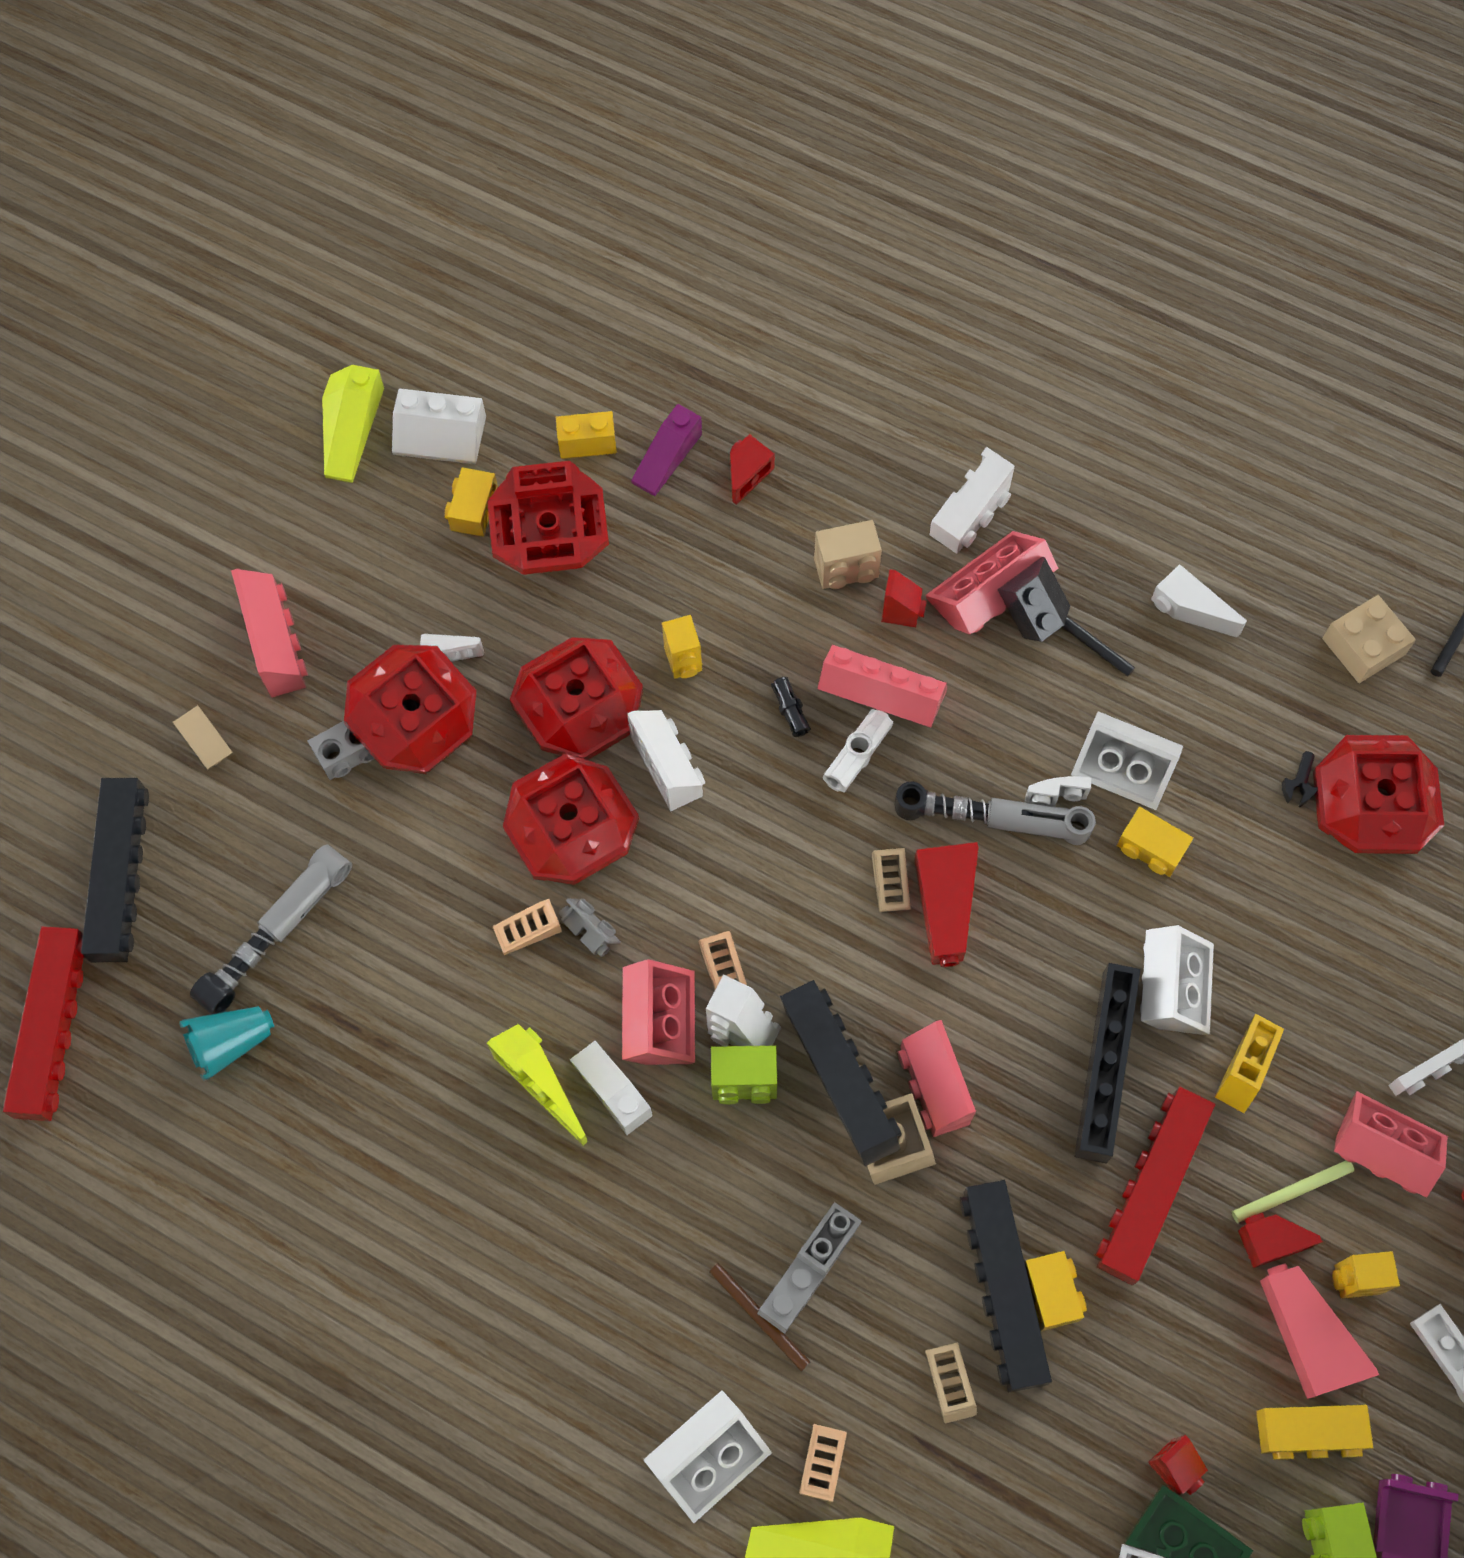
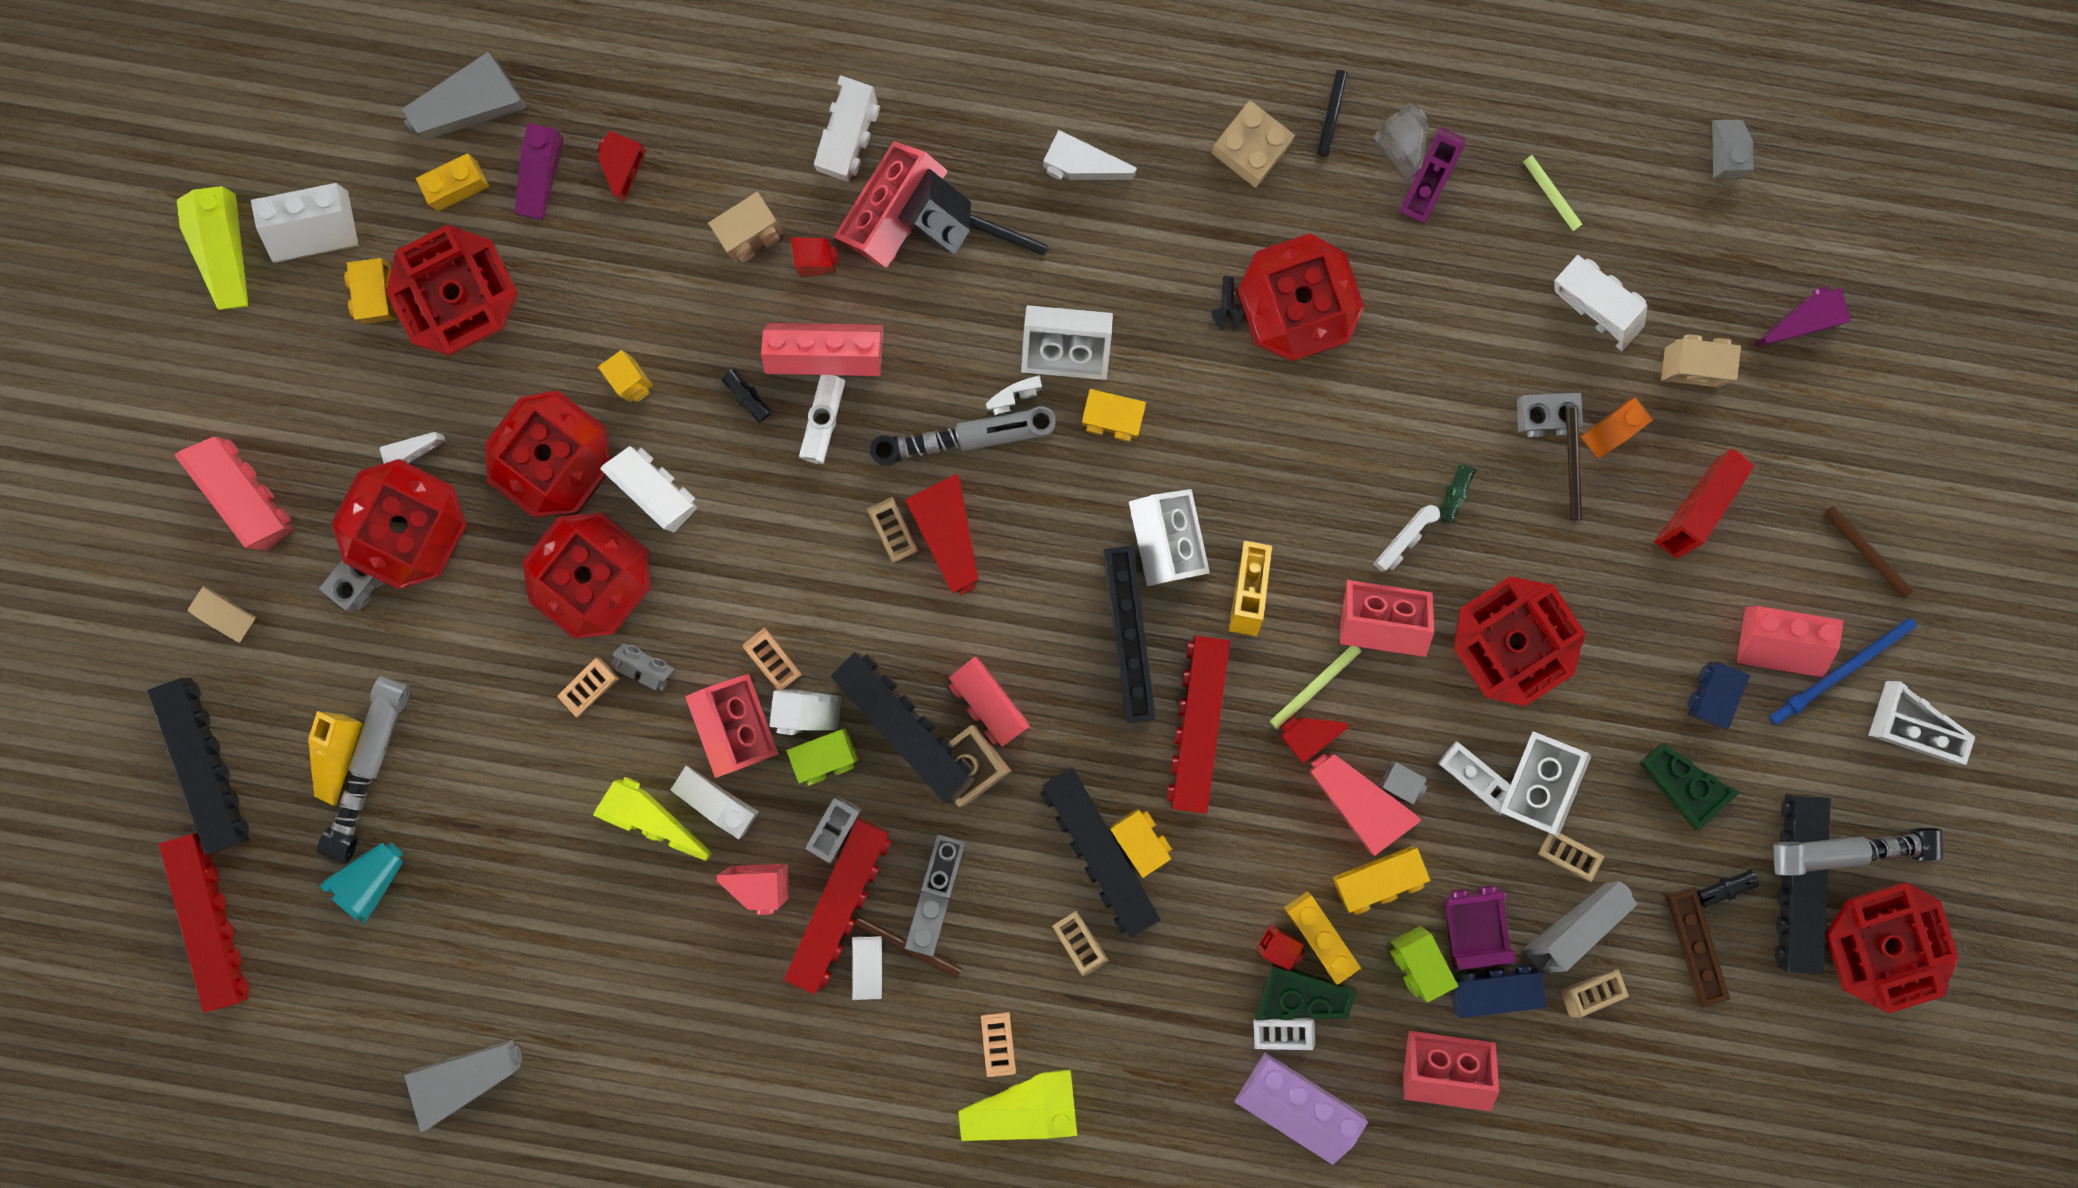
camera: 20 degrees left, 20 degrees up
(224, 1285) = (454, 1082): none -> light grey slope
(249, 897) = (331, 751): none -> yellow slope
(625, 372) = (463, 100): none -> light grey slope
(631, 1180) = (757, 886): none -> coral slope
(699, 1242) = (837, 905): none -> red brick
(707, 1321) = (866, 968): none -> white slope
(707, 1456) = (903, 1073): white slope -> none
(726, 1155) = (833, 829): none -> light grey brick
(1229, 1473) = (1322, 937): none -> yellow brick
(1365, 1275) = (1390, 743): yellow brick -> none
(1369, 1328) = (1403, 783): none -> light grey brick

